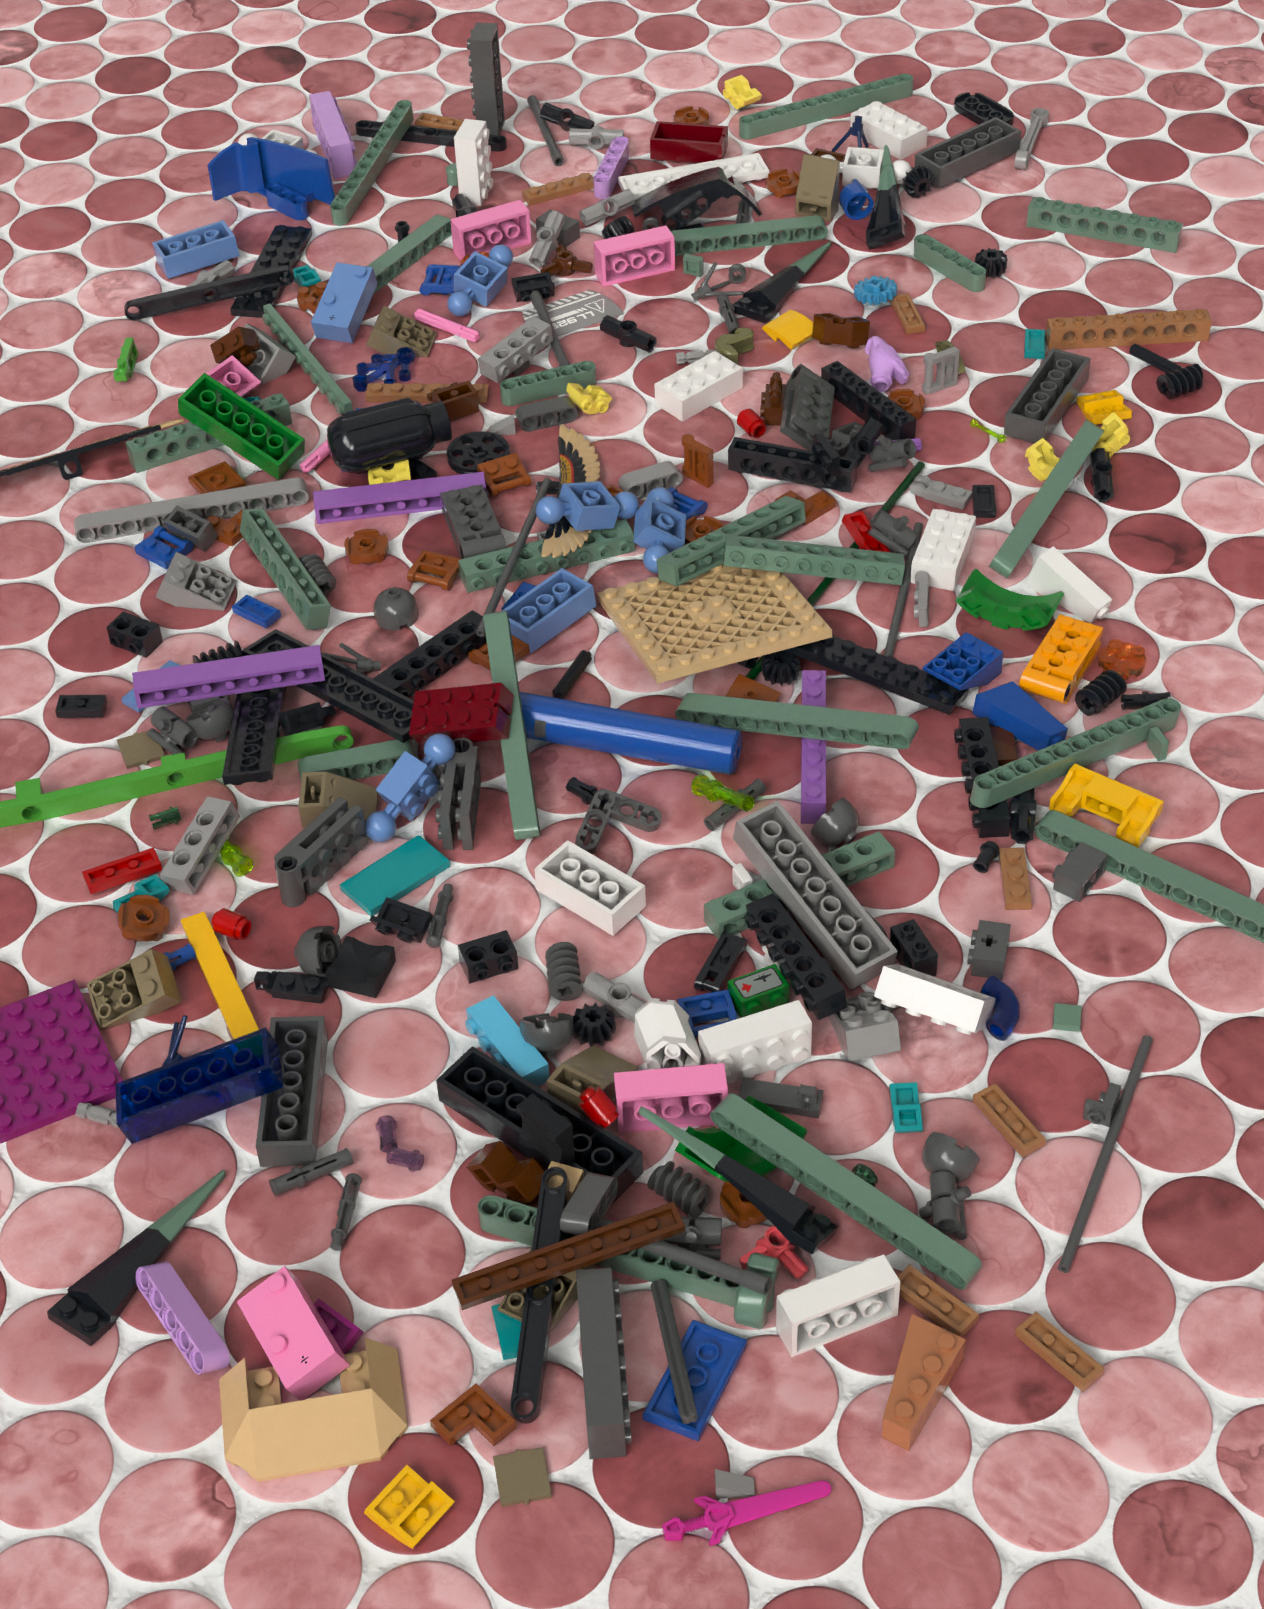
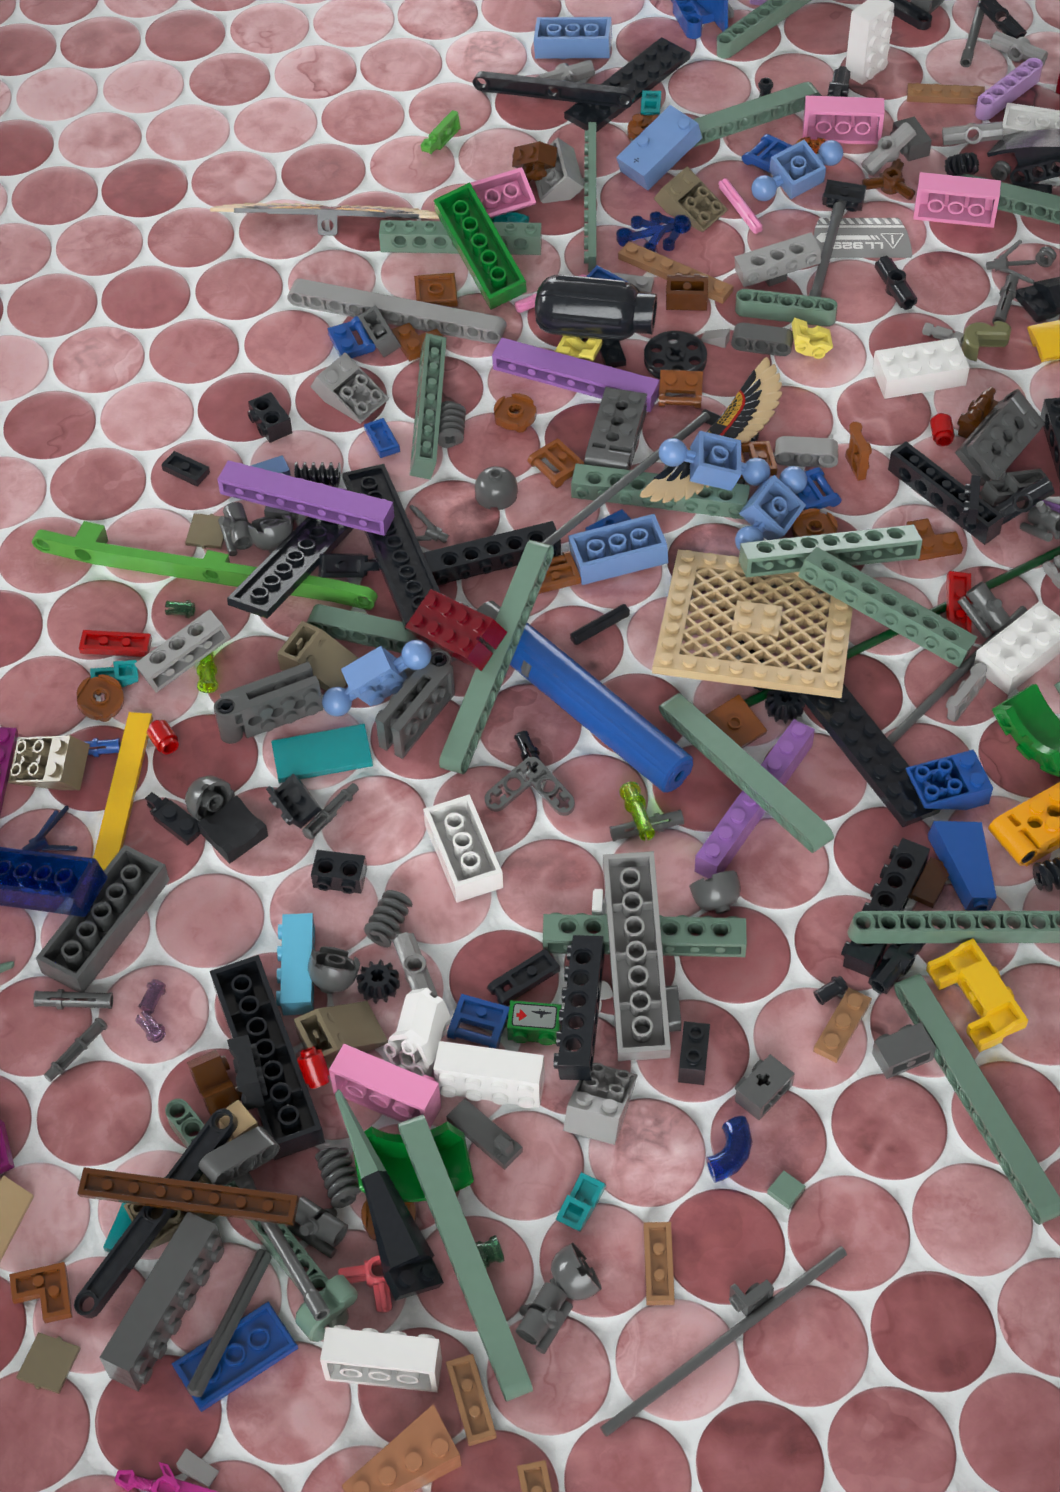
camera: 30 degrees right, 10 degrees up
(693, 265) = (1010, 230): sand green tile -> none
(935, 998) = (672, 1112): white brick -> none

